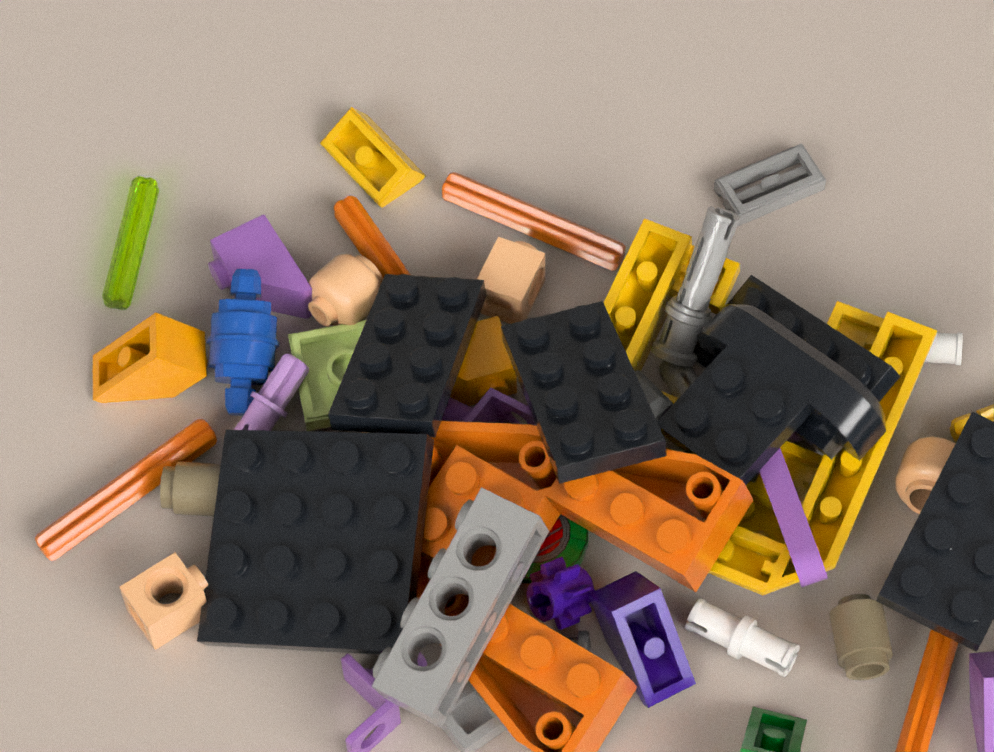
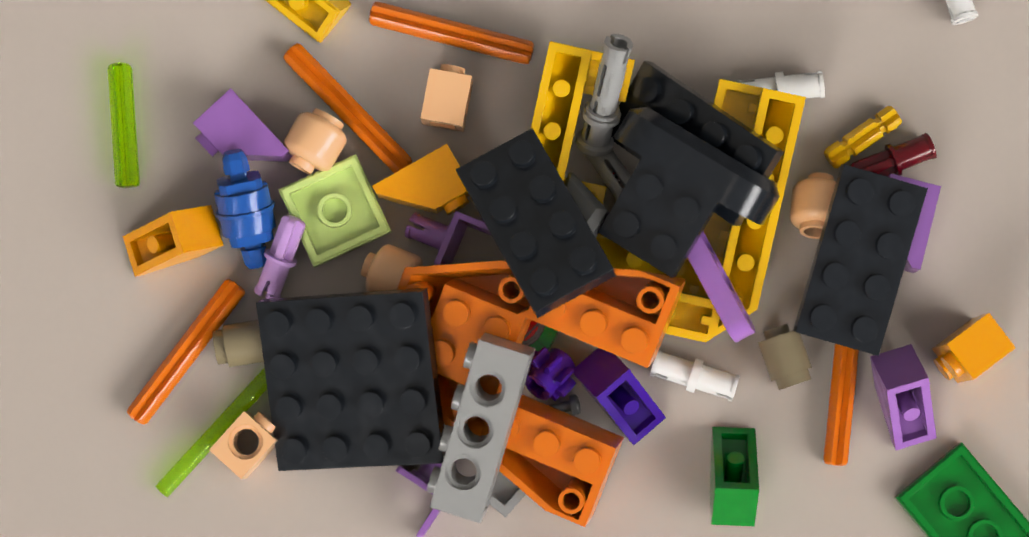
camera: 10 degrees left, 25 degrees up
(112, 598) = (201, 447): none -> clear neon green bar
(408, 355) = (385, 203): black plate -> none

